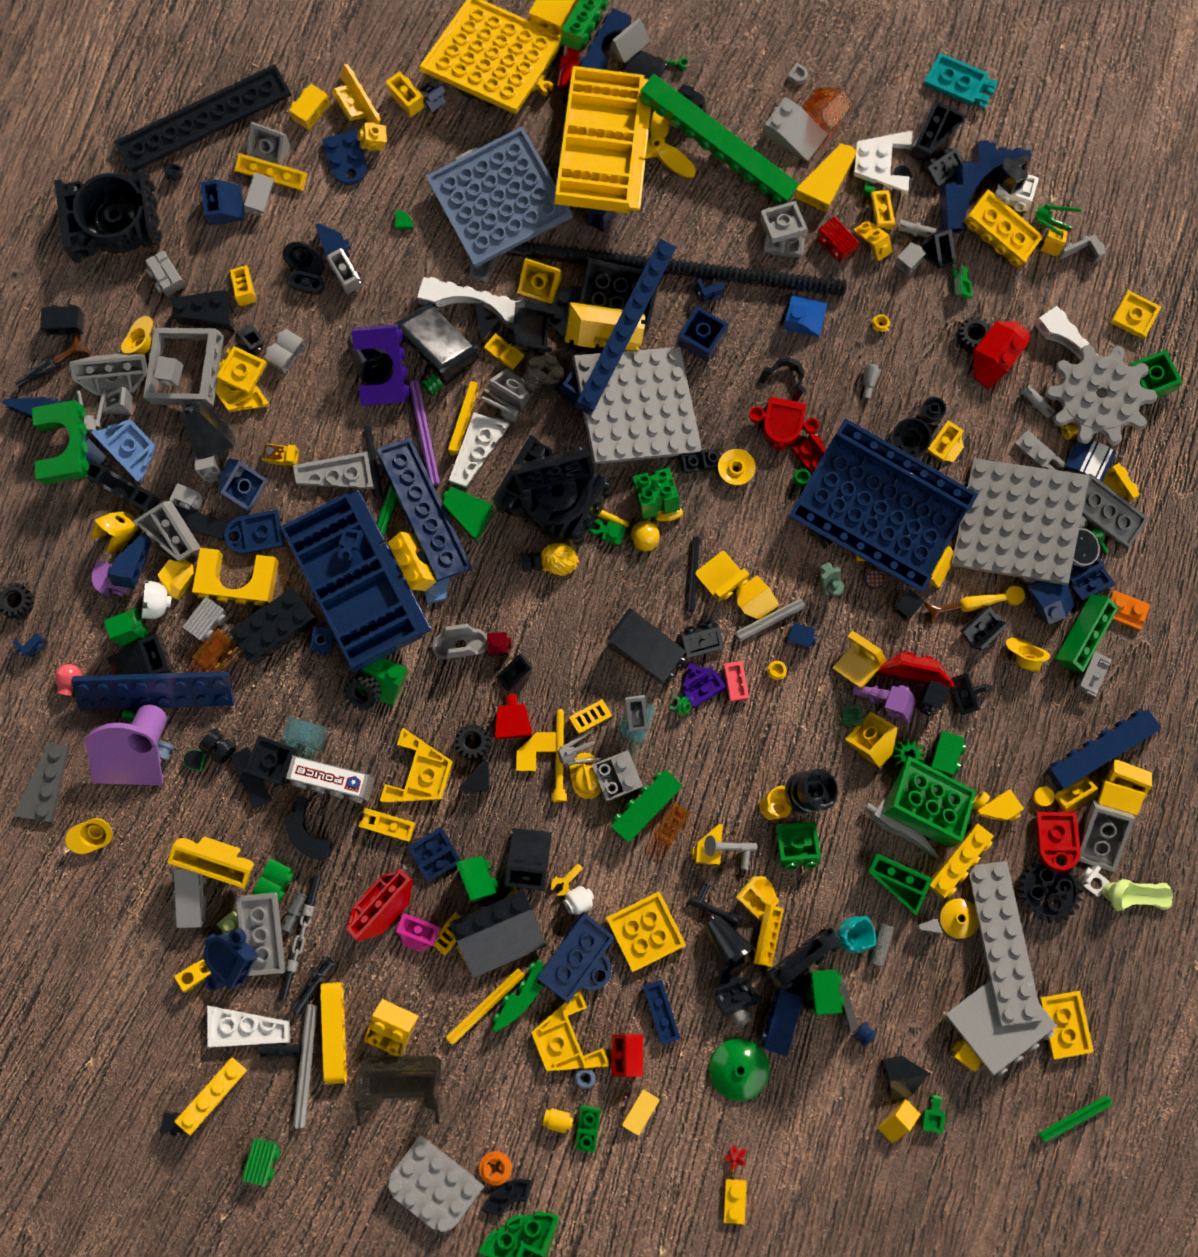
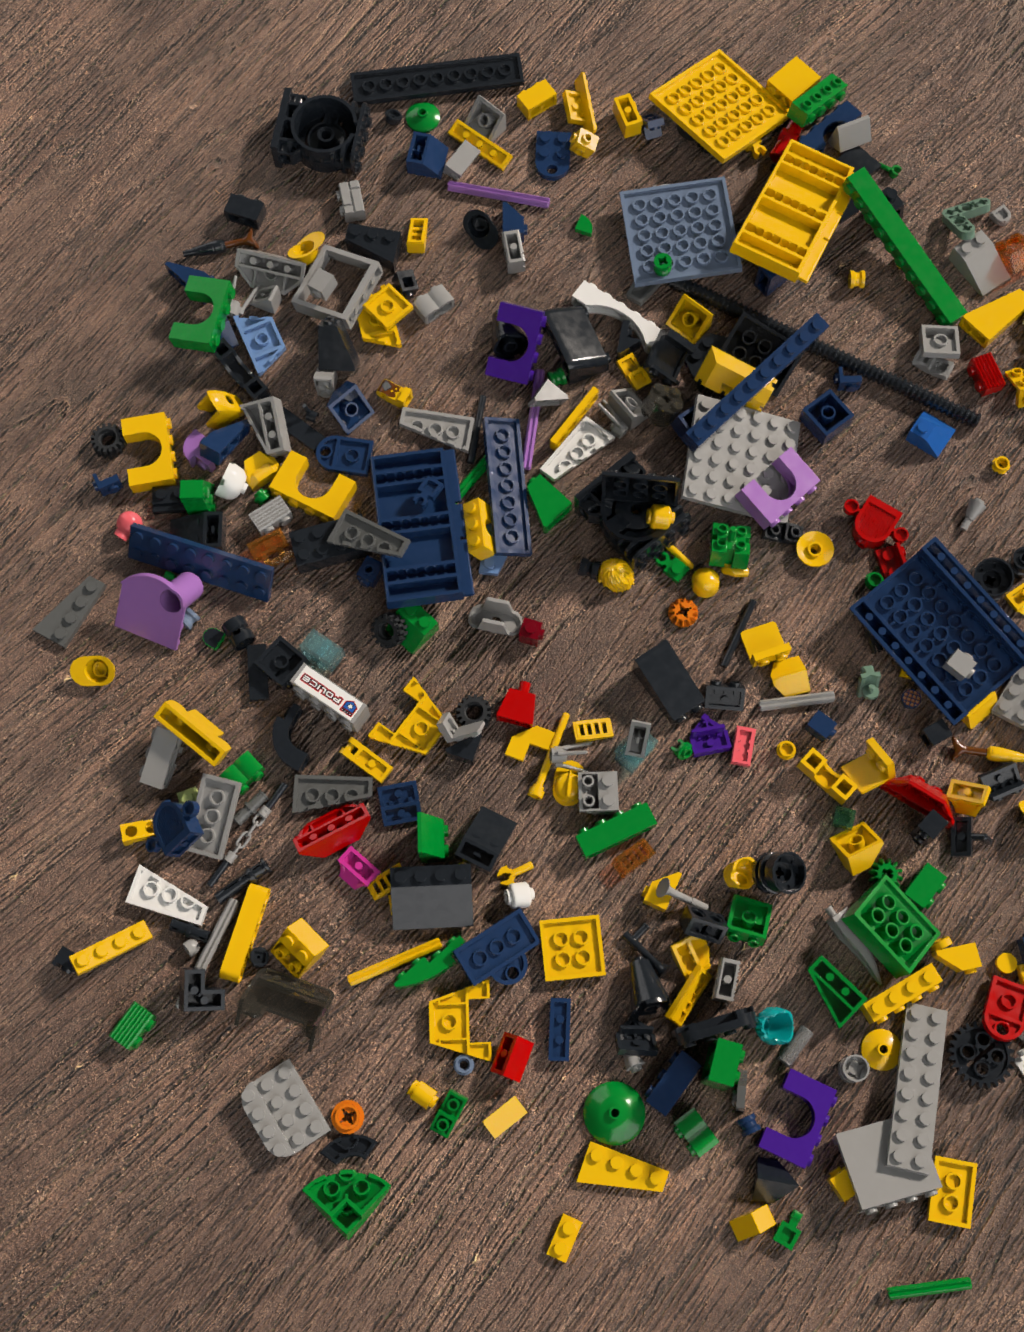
camera: 20 degrees right, 5 degrees down
(81, 612) = (162, 471): none -> yellow arch
(95, 639) = (167, 500): none -> black plate
(186, 497) = (293, 402): light grey brick -> none
(188, 603) = (262, 496): none -> green plate
(206, 168) = (425, 122): none -> green dish
(206, 505) = (311, 415): none -> black hand
(287, 1065) = (191, 947): none -> light grey hinge
(303, 609) = (362, 534): none -> dark grey wing
(307, 282) = (476, 251): black plate -> none
(308, 216) = (498, 194): none -> medium lavender axle
(310, 1111) = (194, 995): none -> black brick
(355, 1051) = (258, 957): none -> black tile
(359, 869) = (321, 791): none -> dark grey wing
(430, 404) = (548, 395): none -> slope
(461, 769) = (451, 731): none -> light grey bracket
(496, 241) = (663, 269): none -> green wheel
(514, 672) = (537, 662): black slope -> none
(581, 491) = (660, 516): none -> yellow head
(634, 581) = (679, 619): none -> orange gear
(667, 154) = (852, 247): yellow piece -> none
(683, 185) = (856, 279): none -> yellow wheel
(700, 407) = (767, 509): none -> medium lavender arch
(736, 1157) = (580, 1195): red plant -> none
(755, 89) = (957, 217): none -> sand green beam
(756, 1121) = (616, 1169): none -> yellow wing
(759, 865) = (703, 924): none -> black brick
(793, 365) = (902, 475): black helmet -> none
(798, 909) = (726, 980): none -> light grey brick
(814, 680) = (817, 769): none -> yellow arch
(819, 1059) = (695, 1132): none -> green brick
(897, 702) = (893, 818): medium lavender brick -> none
(909, 532) = (960, 665): none -> light grey brick
(916, 1039) = (819, 1100): none -> dark purple arch
(930, 926) = (849, 1045): light grey slope -> none
(941, 947) = (853, 1068): none -> light grey wheel
(957, 654) = (967, 796): none -> yellow slope

